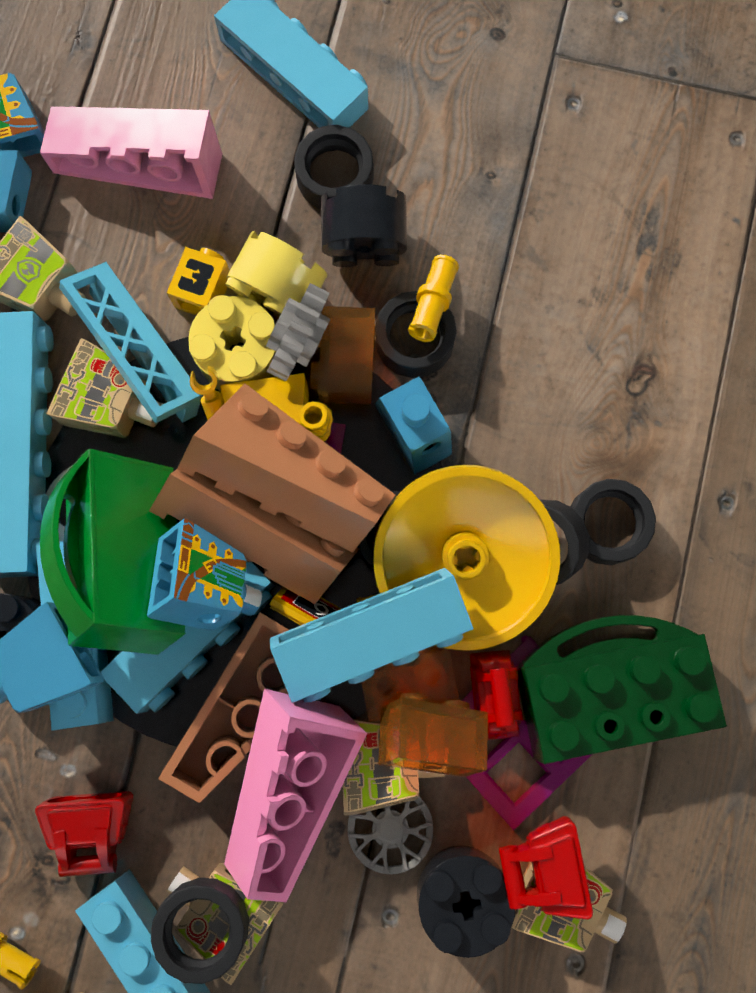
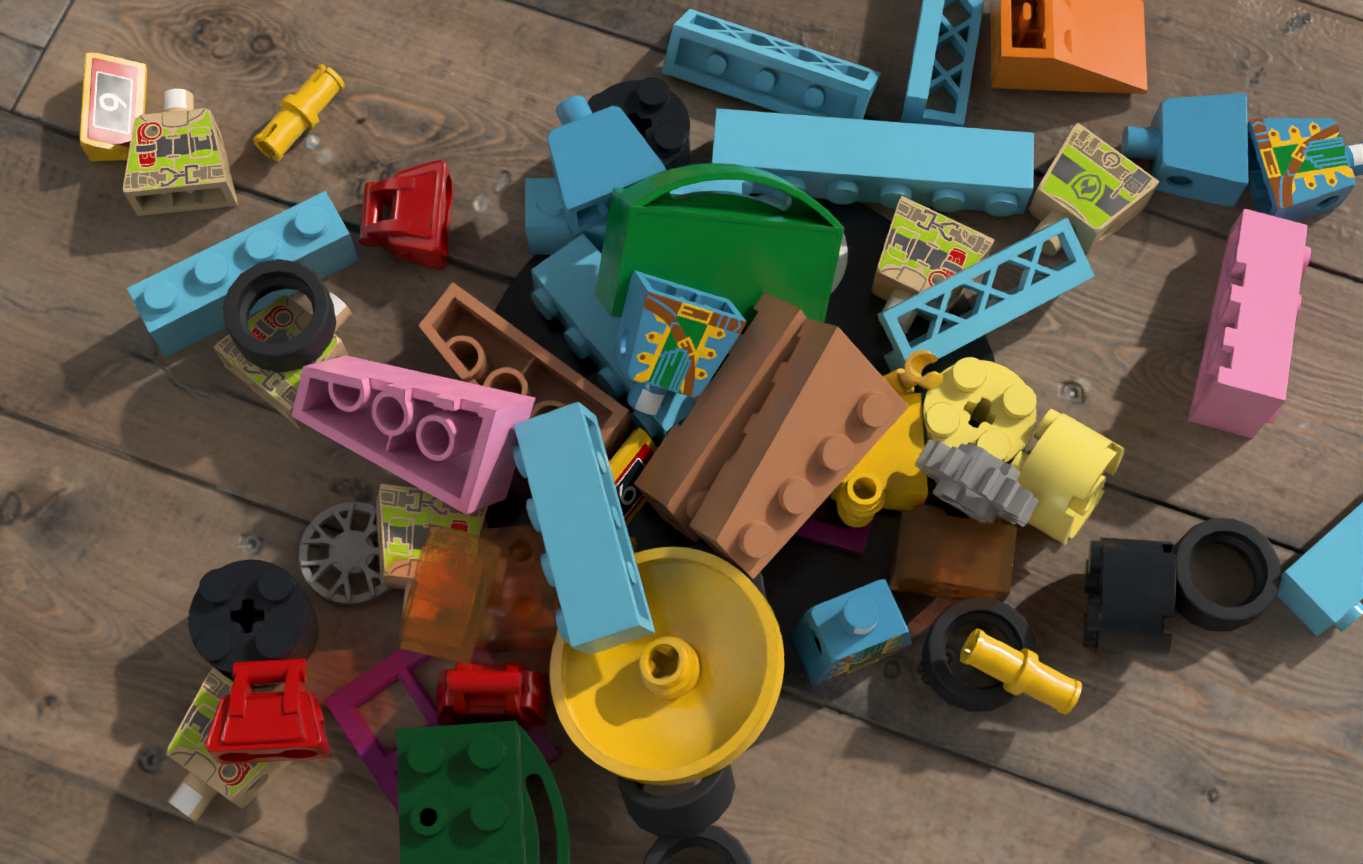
camera: 95 degrees right, 10 degrees down
(198, 279) = (1069, 385): yellow brick -> none

